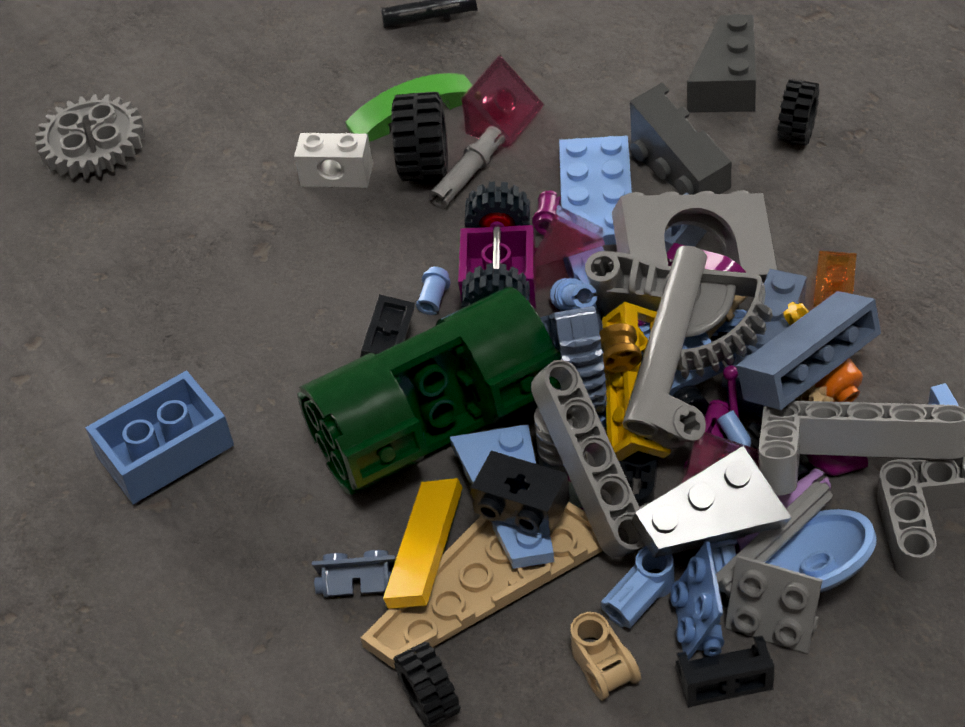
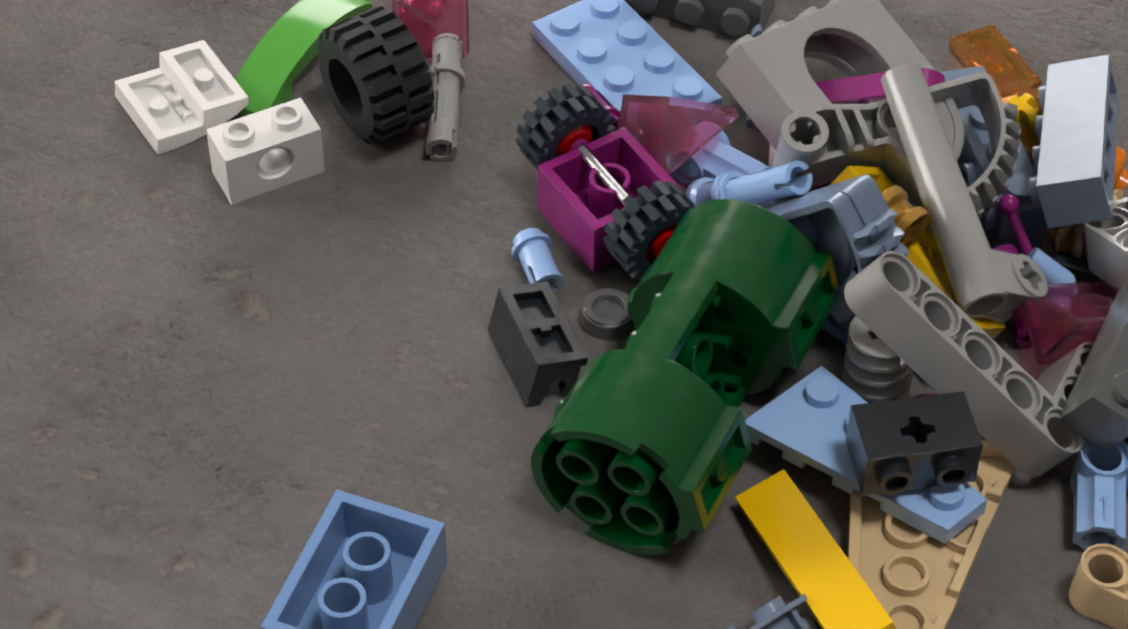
camera: 40 degrees left, 0 degrees up
(321, 109) = (181, 96): none -> white slope

